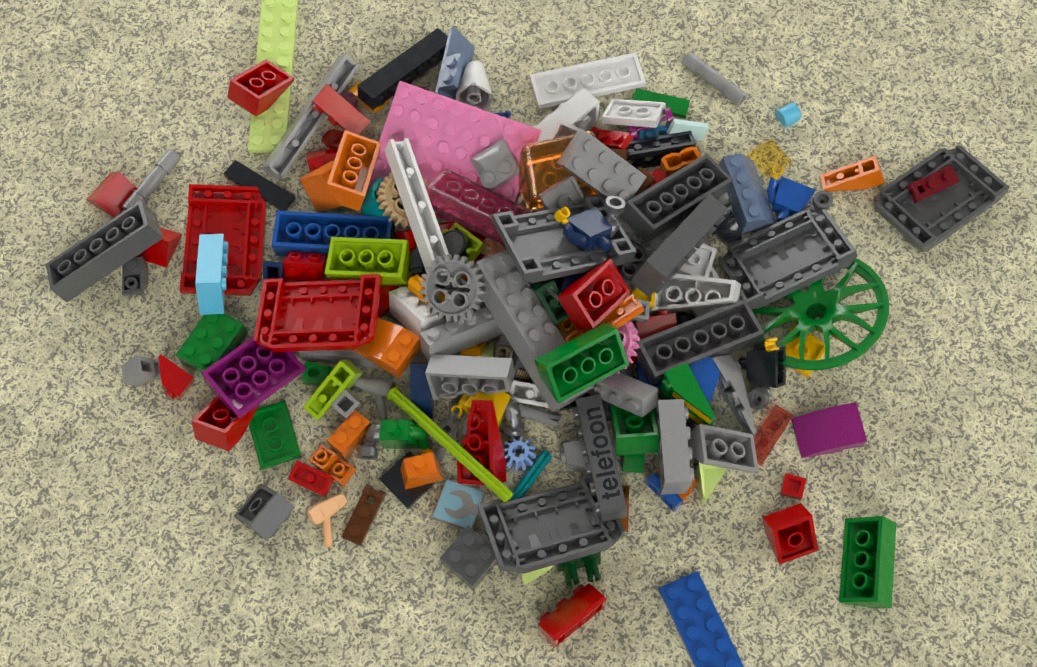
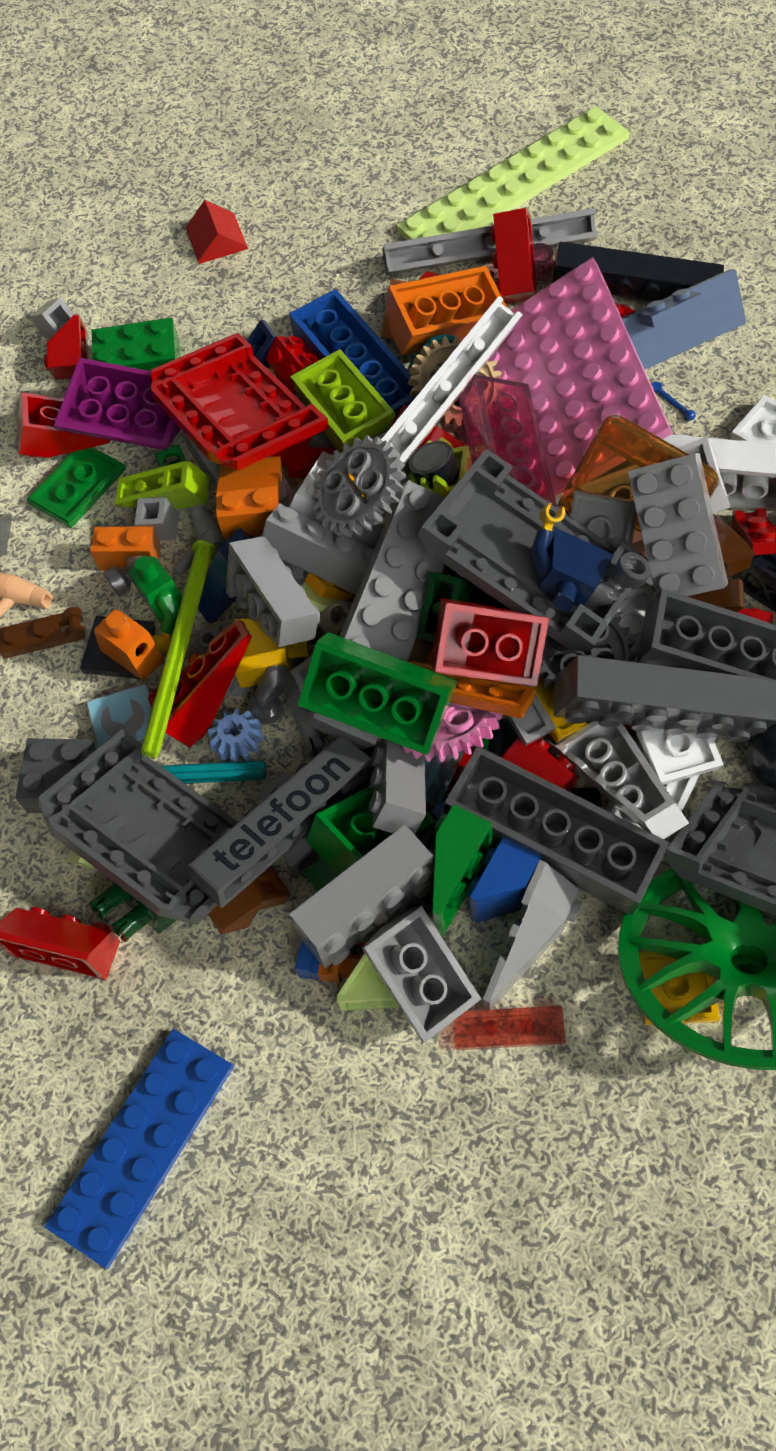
camera: 60 degrees right, 5 degrees down
(103, 251) = (157, 190): dark grey brick -> none
(112, 194) = (240, 164): slope -> none
(134, 276) = (159, 240): dark grey slope -> none
(153, 179) = (282, 181): light grey piece -> none
(211, 273) = (204, 285): medium azure wedge -> none
(238, 215) = (267, 276): red slope -> none
(259, 87) = (475, 173): red slope -> none
(268, 190) = (364, 266): black tile -> none
(311, 478) = (46, 552): red plate -> none
(332, 465) = (80, 565): orange slope -> none
(474, 86) = (683, 353): white cone -> none
(496, 165) = (575, 426): light grey slope -> none
(764, 371) = (589, 952): black torso -> none
(791, 533) = (377, 1157): red slope -> none
(793, 486) = (453, 1113): red plate -> none
(829, 430) = (581, 1108): magenta slope -> none
(868, 562) = (415, 1309): green slope -> none

